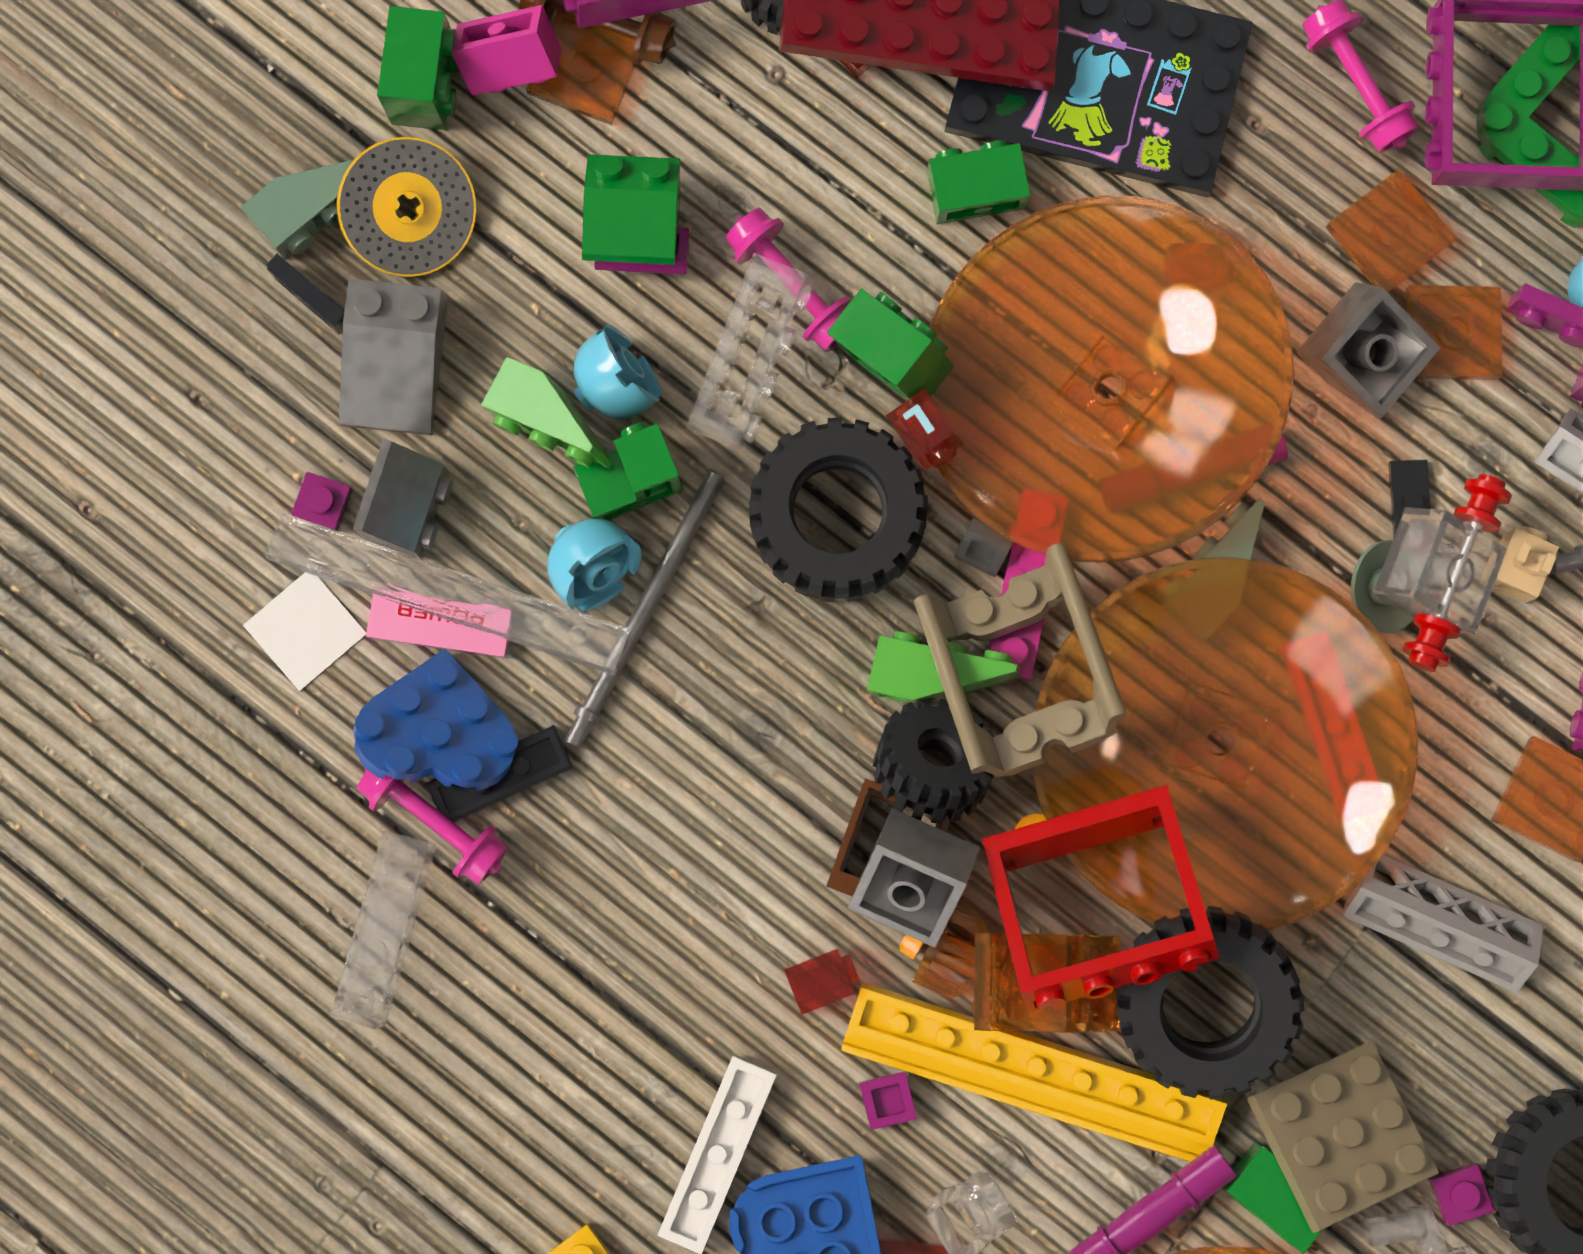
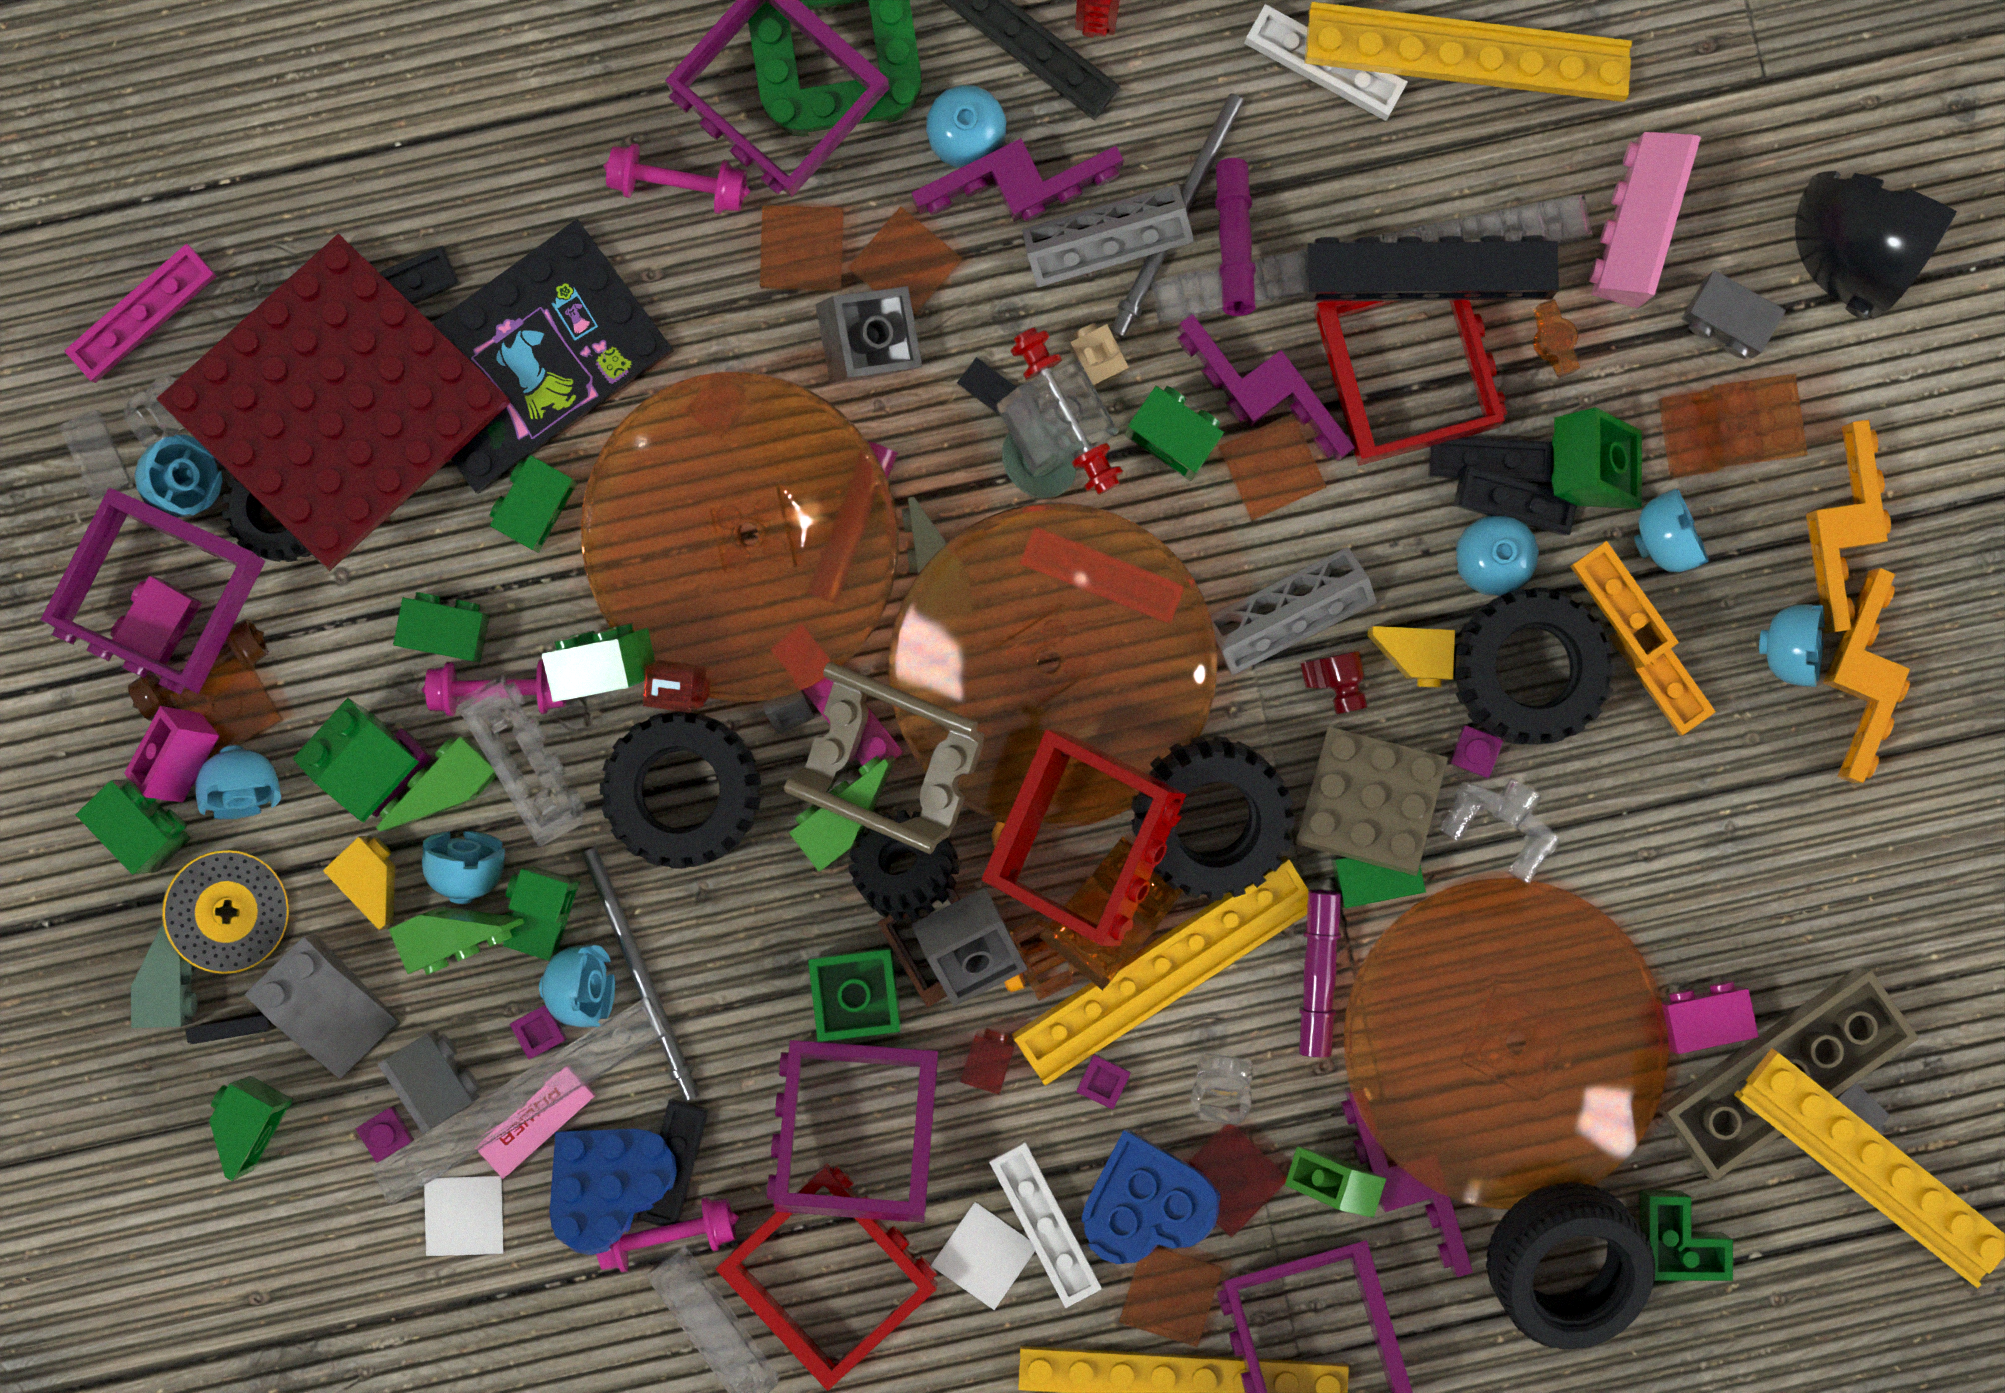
camera: 40 degrees left, 5 degrees up
(234, 371) = (245, 1122): none -> green slope
(437, 982) = (784, 1326): none -> red window
(521, 560) = (537, 1032): none -> magenta plate
(524, 127) = (236, 784): none -> medium azure cylinder
(534, 304) = (367, 879): none -> yellow slope
(594, 961) = (783, 1142): none -> magenta window
(642, 1122) = (984, 1256): none -> white sticker
(677, 308) = (452, 781): none -> bright green slope
(784, 811) = (854, 994): none -> green brick
(804, 193) = (441, 628): none -> green brick
(1428, 1014) = (1340, 673): none -> dark red piece
(1506, 1066) = (1418, 652): none -> yellow slope
(1517, 684) = (1174, 431): none -> green brick

